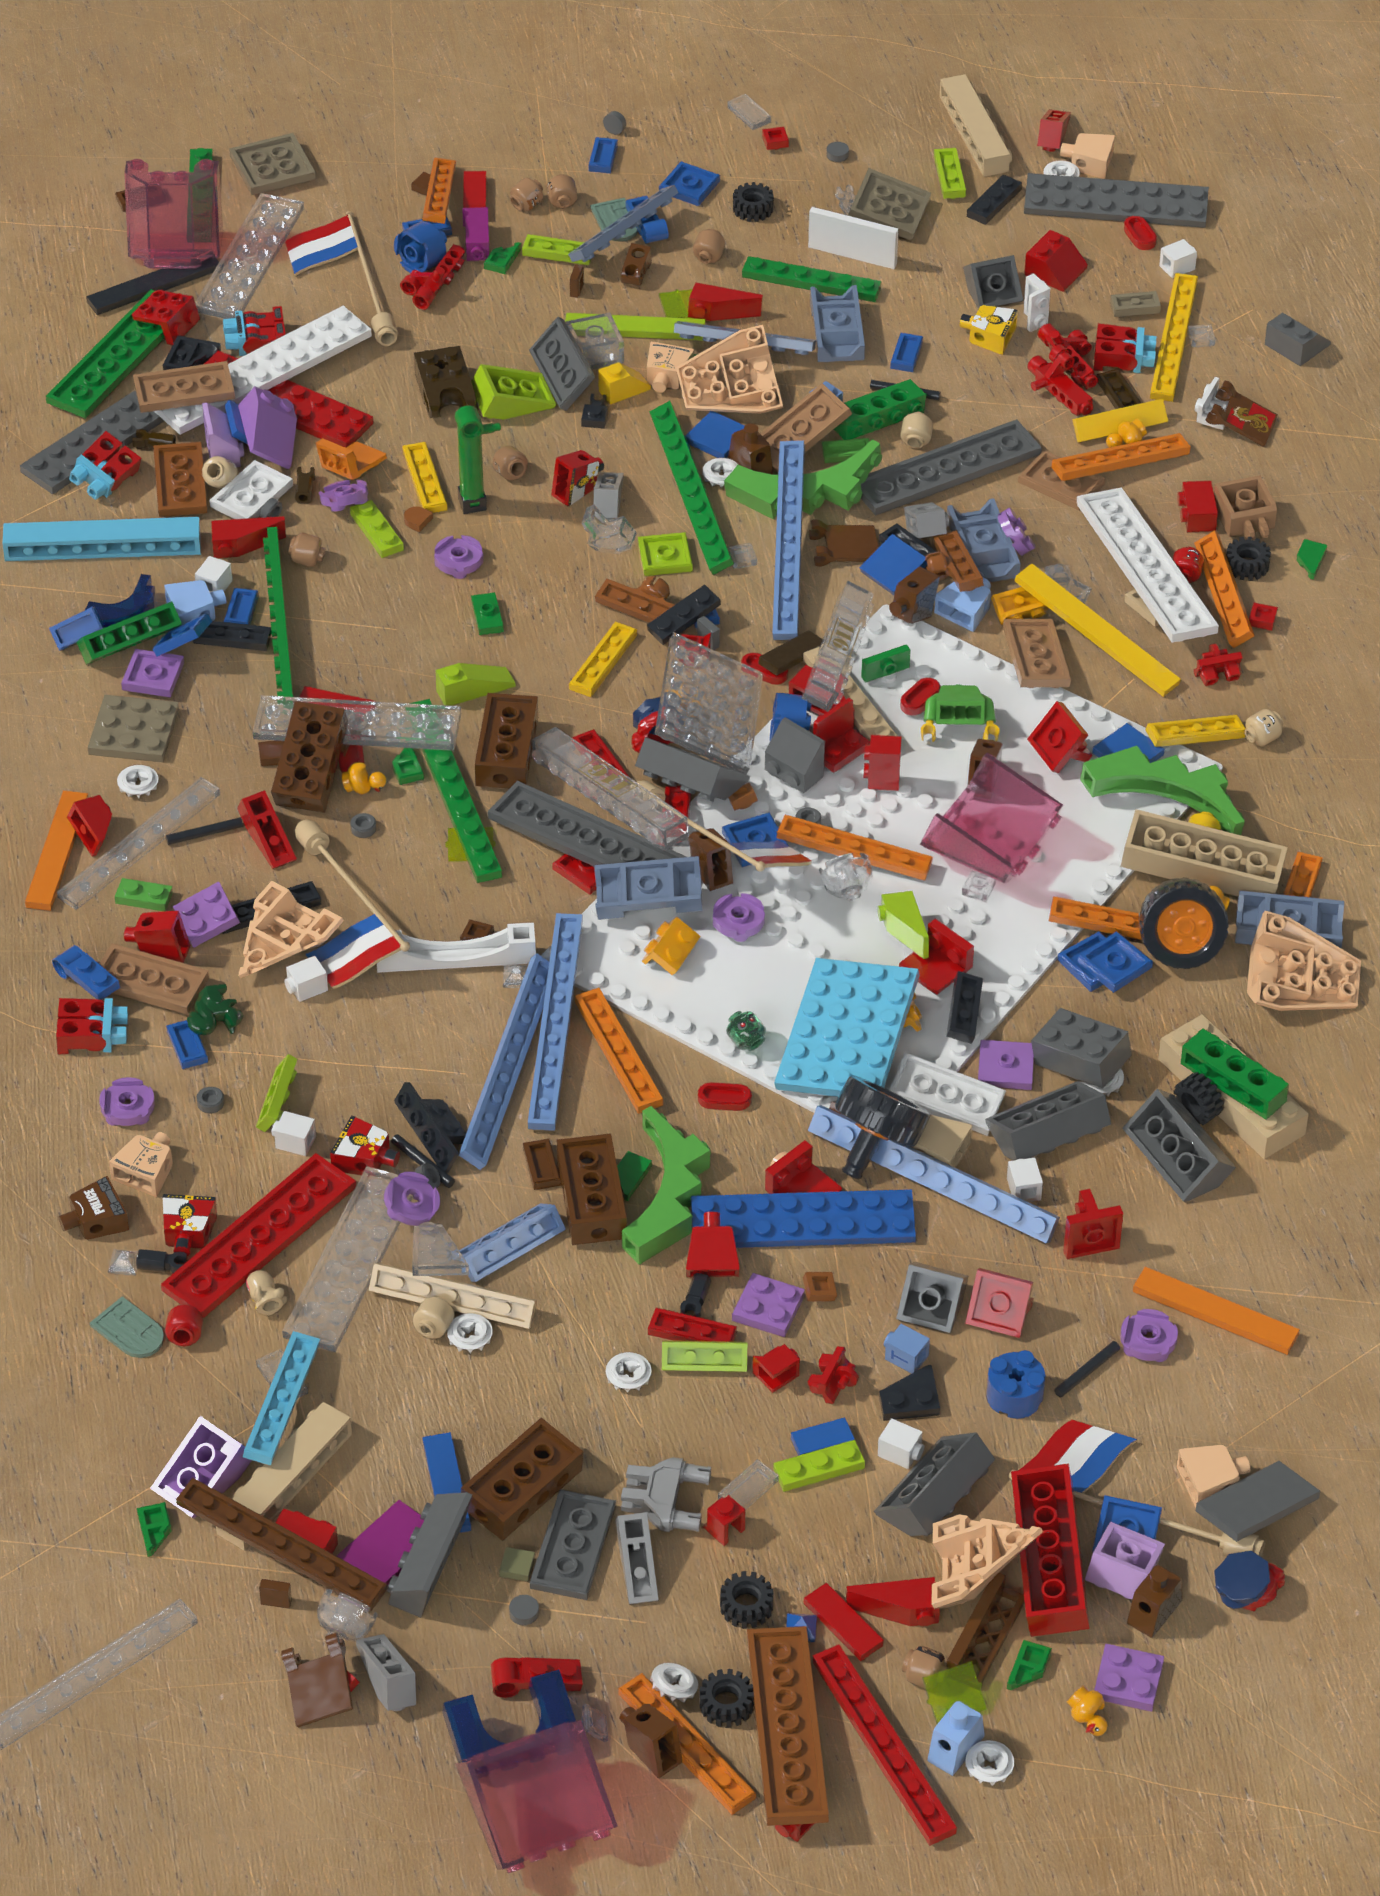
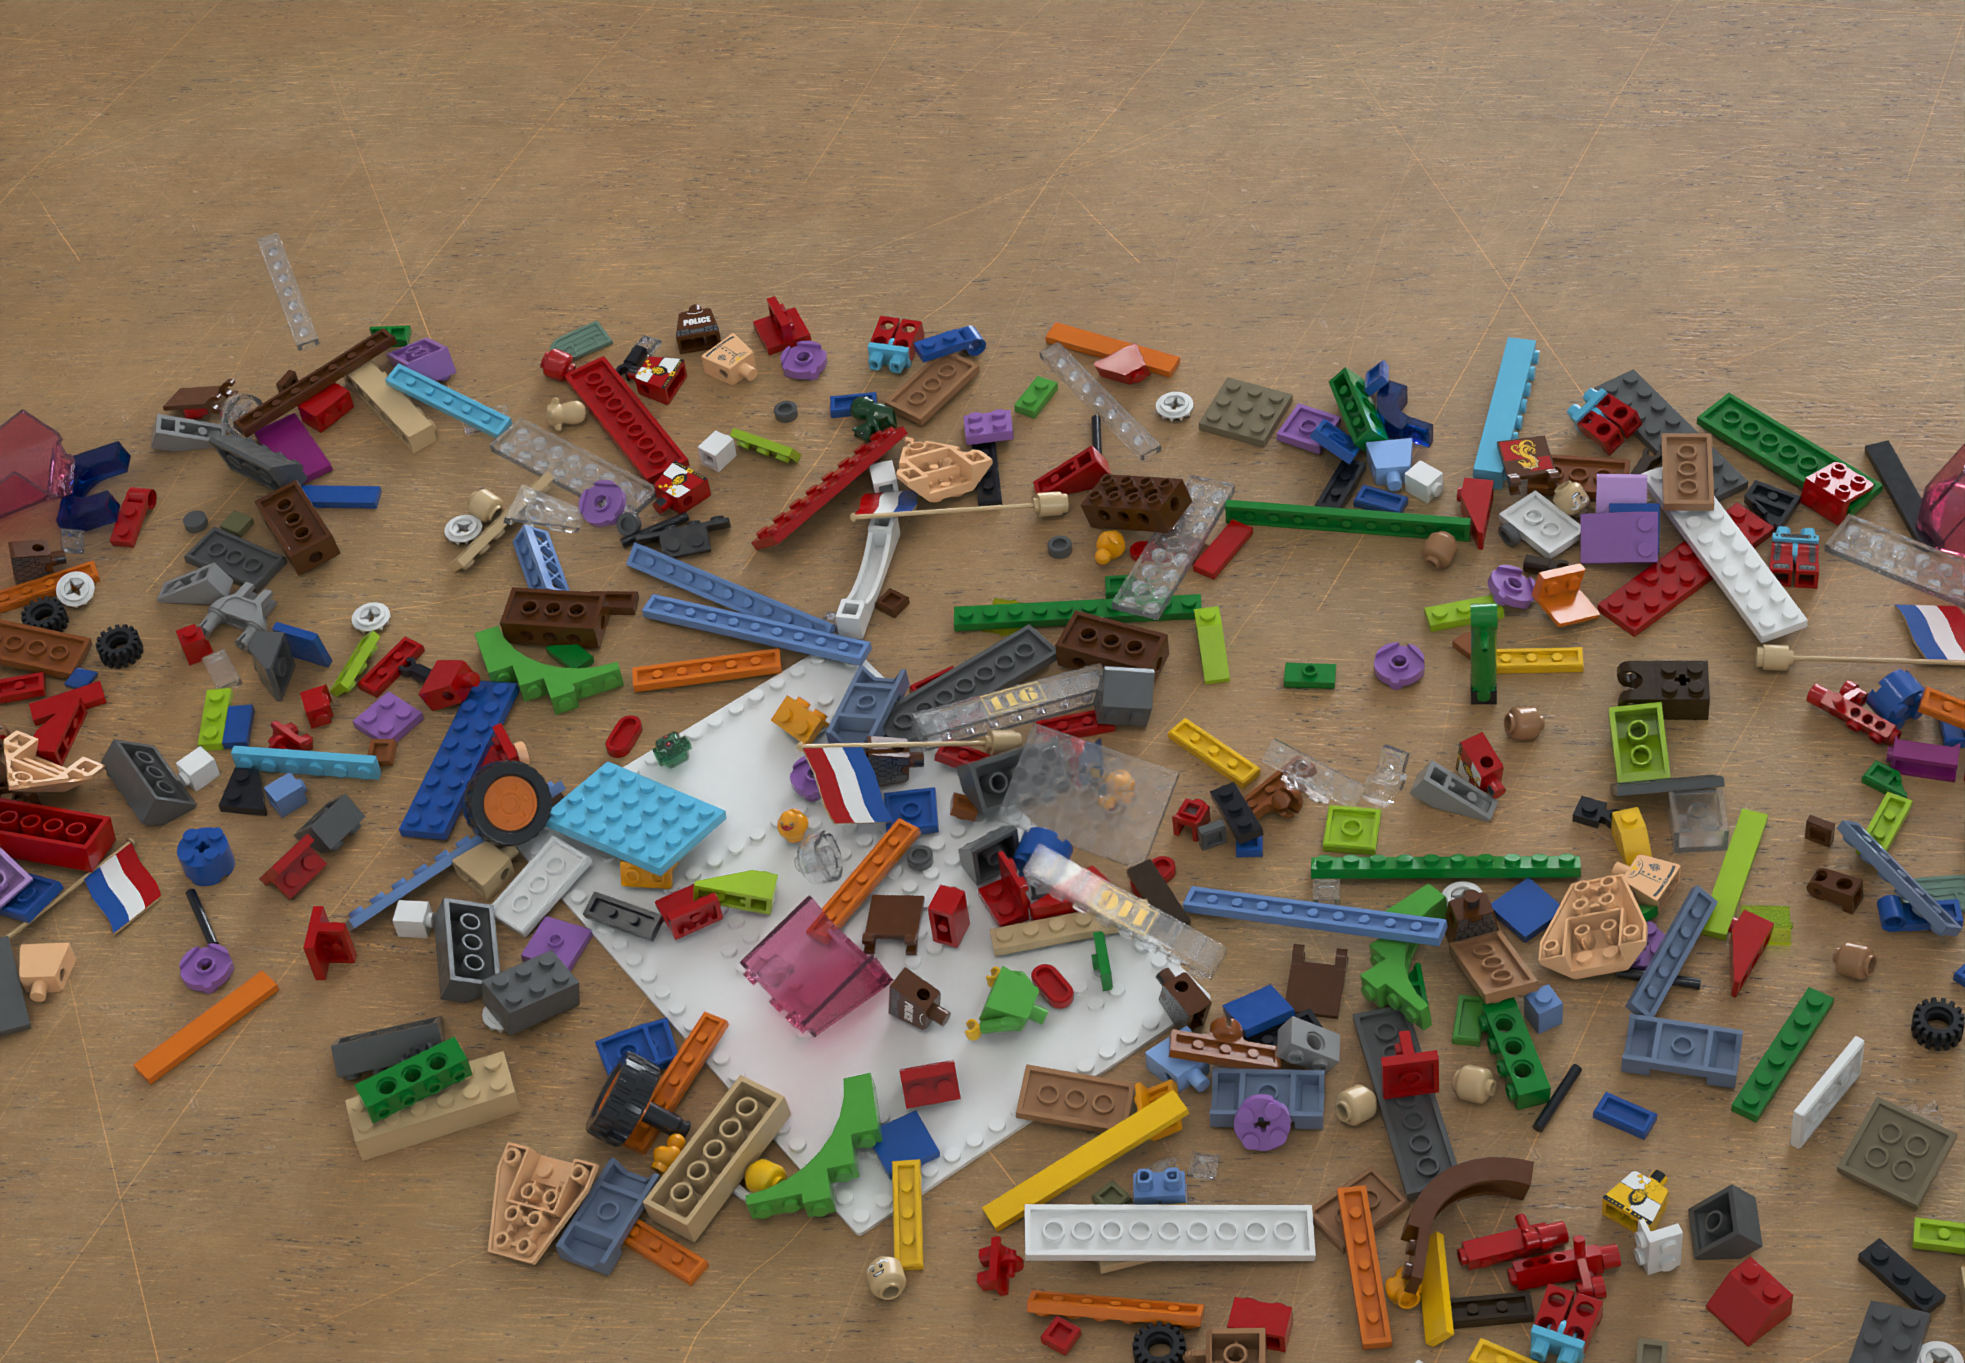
camera: 115 degrees right, 0 degrees up
(78, 1138) = (781, 328): none -> red bracket
(160, 935) = (967, 391): red torso -> none
(184, 500) = (1527, 459): none -> flag
(336, 1012) = (832, 484): none -> red plate
(573, 713) = (1124, 696): none -> dark grey slope
(630, 570) = (1312, 776): none -> clear bracket
(703, 1399) = (304, 644): none -> blue tile
(740, 1417) = (272, 661): none -> dark grey slope
(811, 910) = (792, 825): none -> light orange animal
(860, 1355) = (307, 762): none -> medium azure plate
(891, 815) = (894, 919): none -> reddish brown flag
(935, 446) = (1409, 1071): none -> red bracket
(966, 491) = (1355, 1105): none -> tan head
(1058, 415) = (1465, 1180): none -> reddish brown arch
(1106, 583) = (1160, 1186): none -> medium blue hips
(1119, 619) = (1111, 1195): none -> olive tile
(1189, 562) = (1163, 1280): red head -> none

